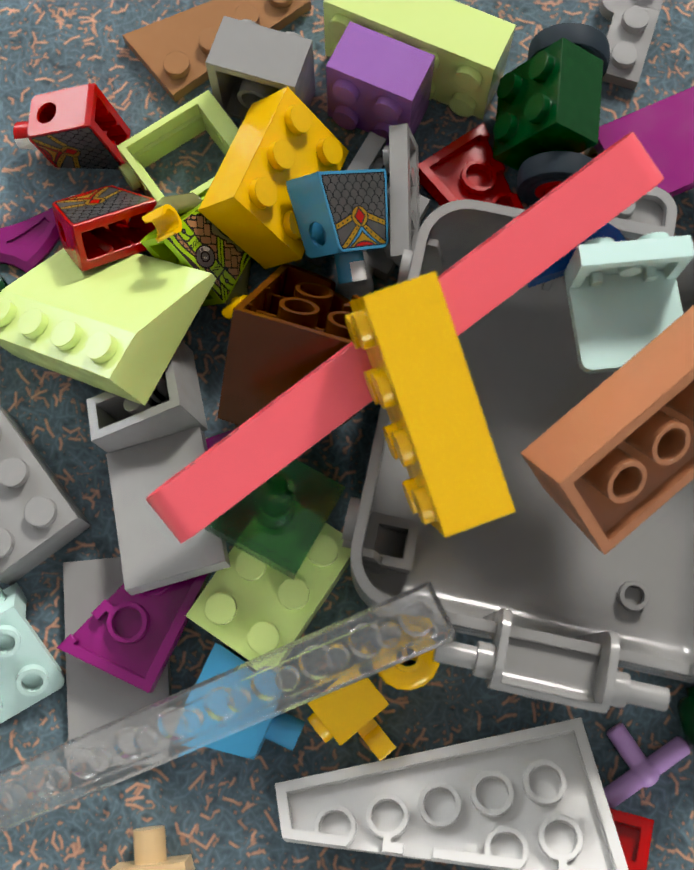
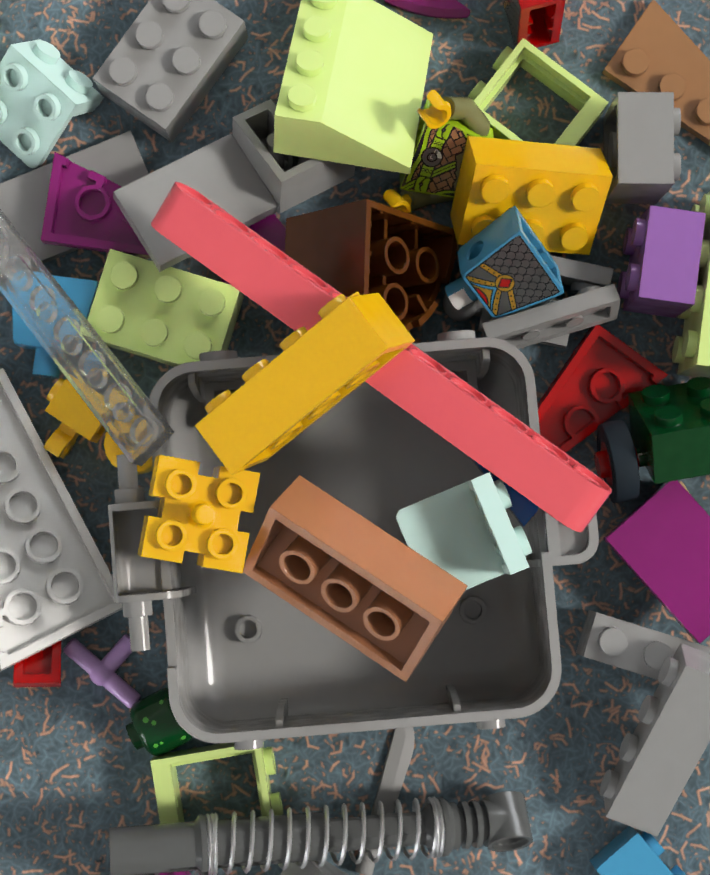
camera: 75 degrees right, 10 degrees up
(97, 225) = (440, 52): red torso -> none
(281, 517) = (210, 306): clear green tile -> none
(539, 579) = (198, 514): none -> yellow brick

